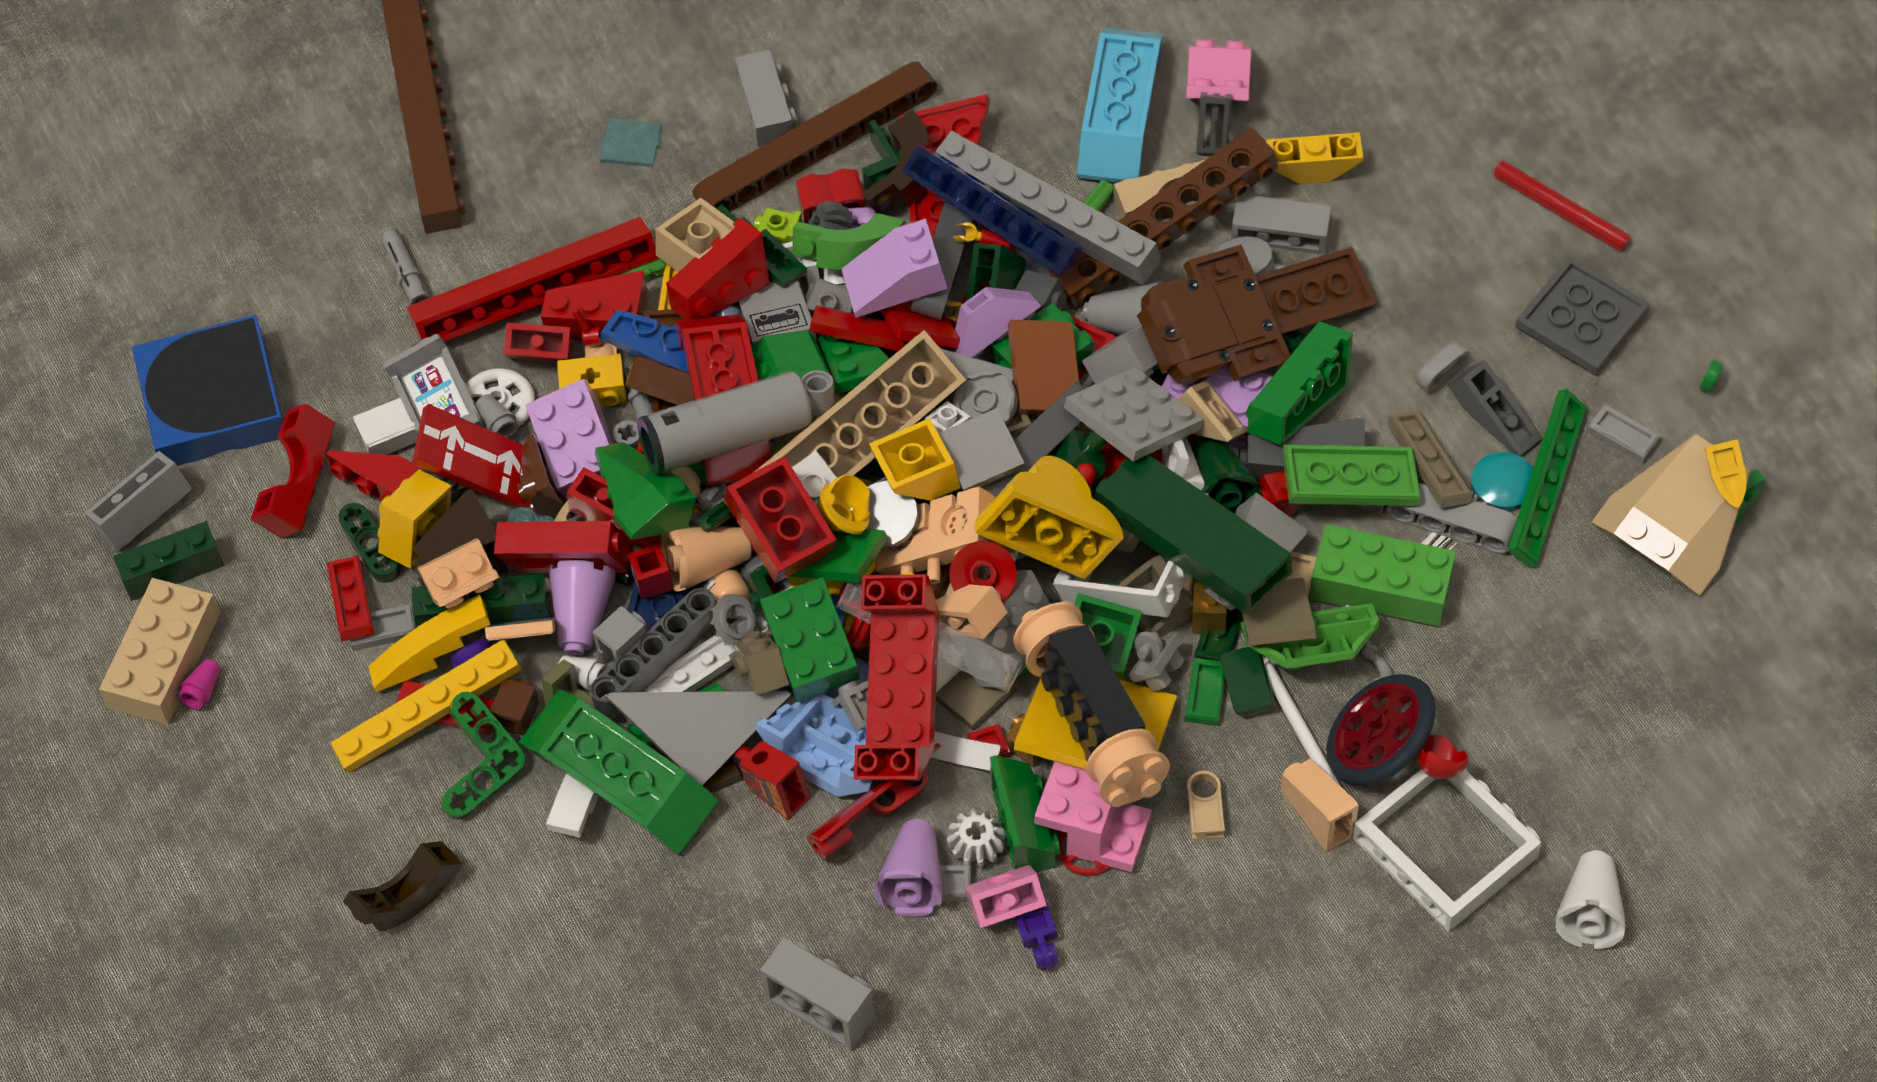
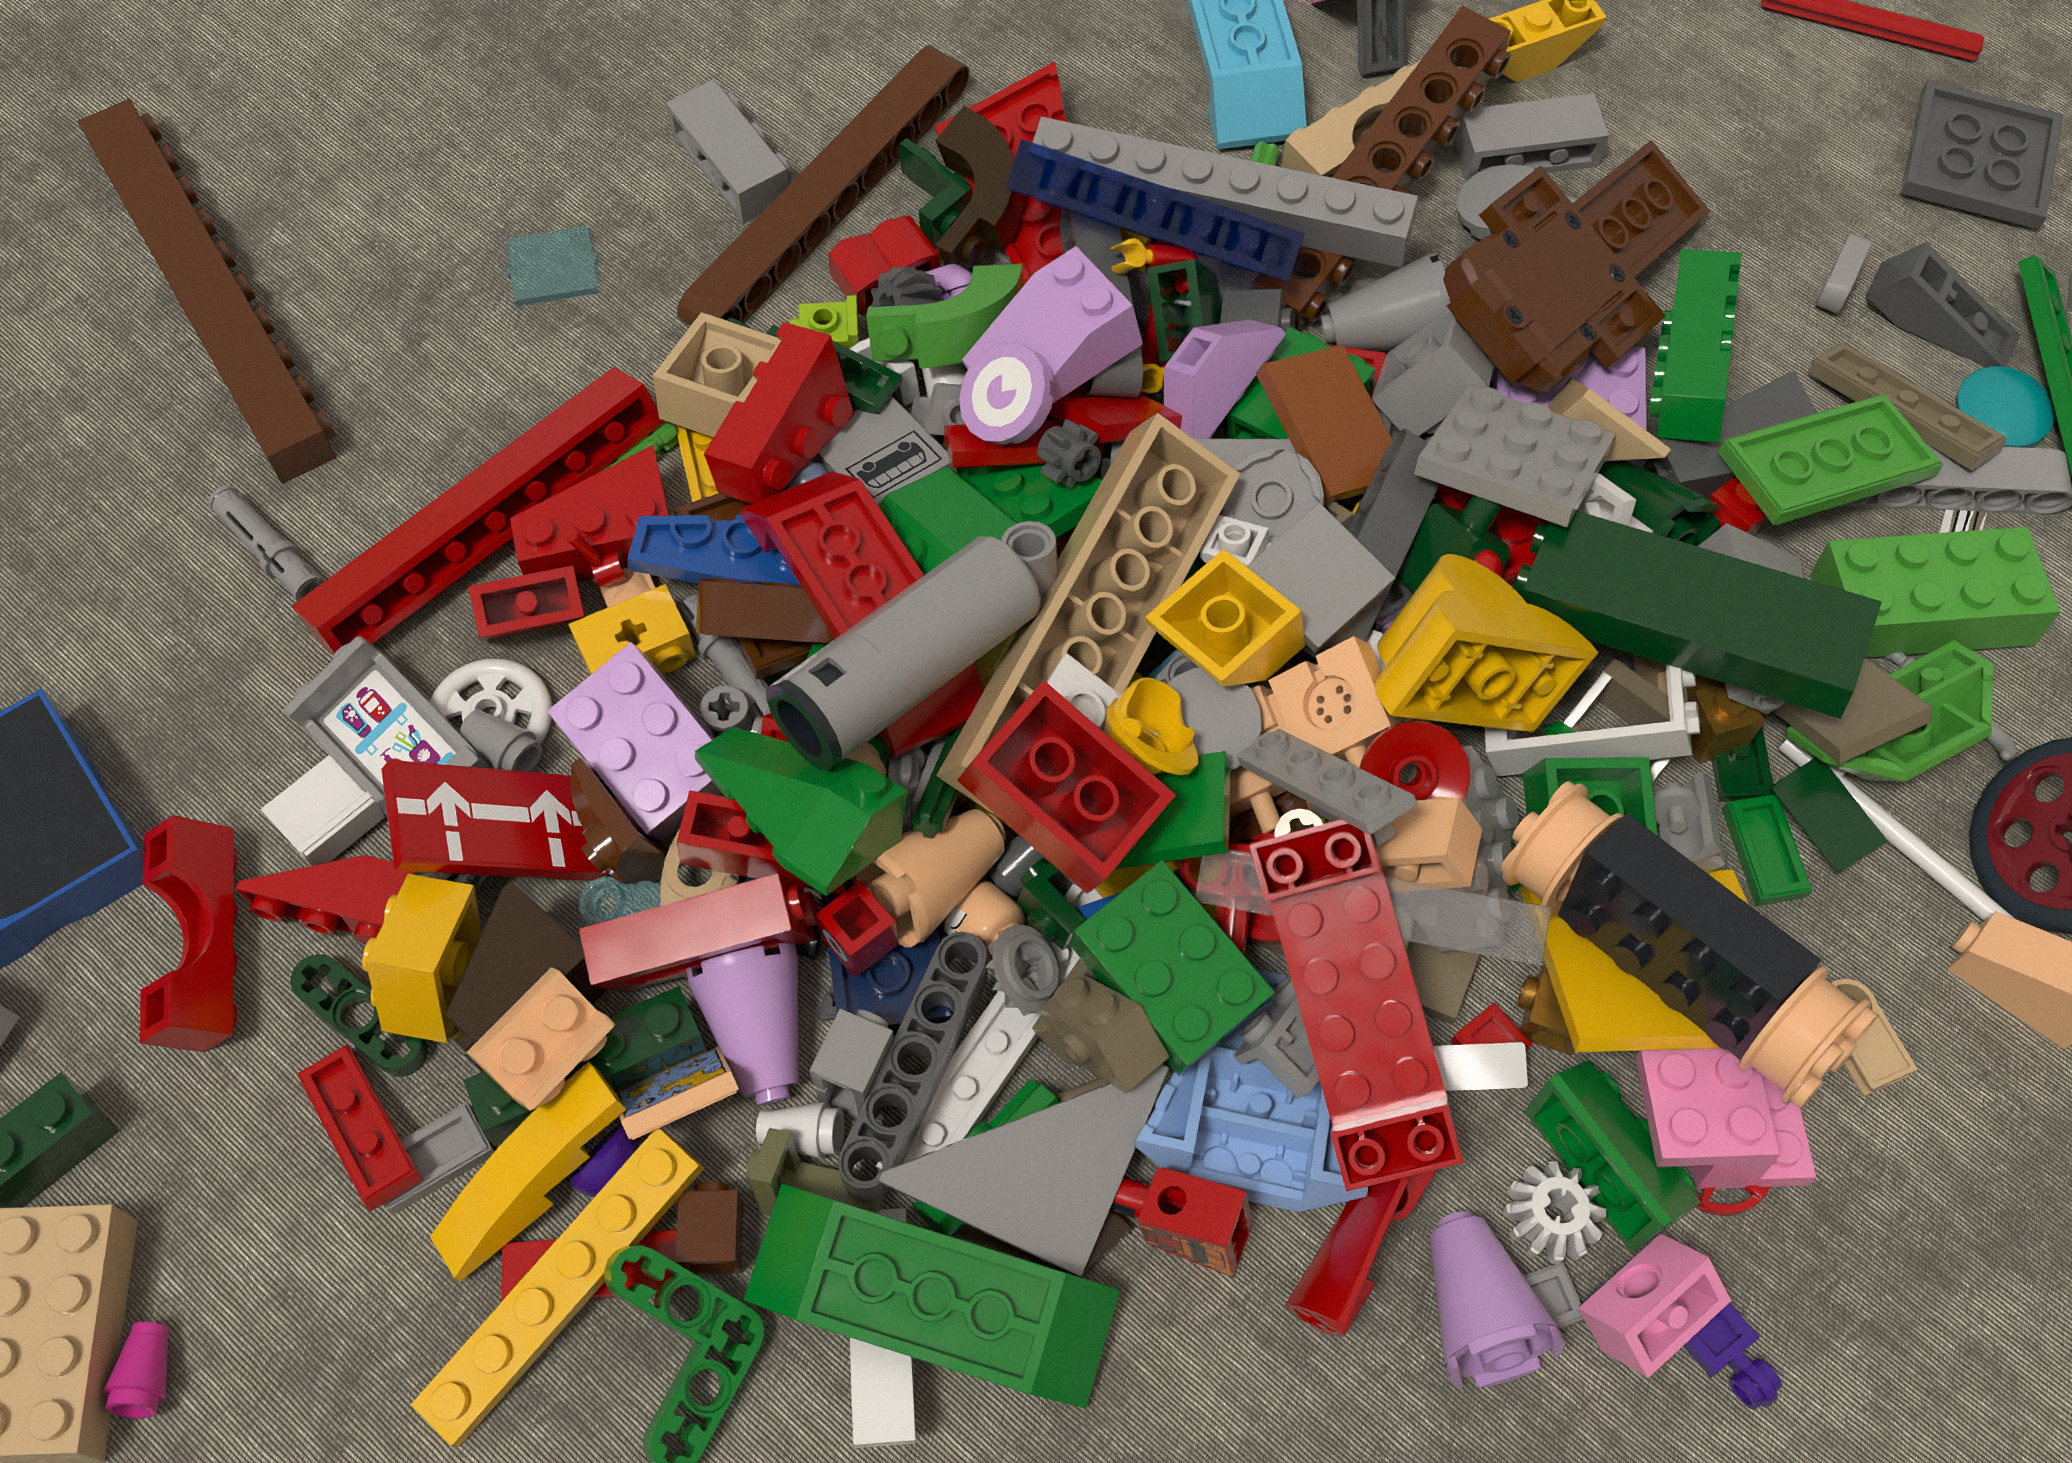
camera: 25 degrees left, 5 degrees up
(852, 296) = (1006, 394): none -> lavender tile
(877, 341) = (1069, 453): none -> dark grey gear
(924, 560) = (1328, 783): none -> light grey bracket

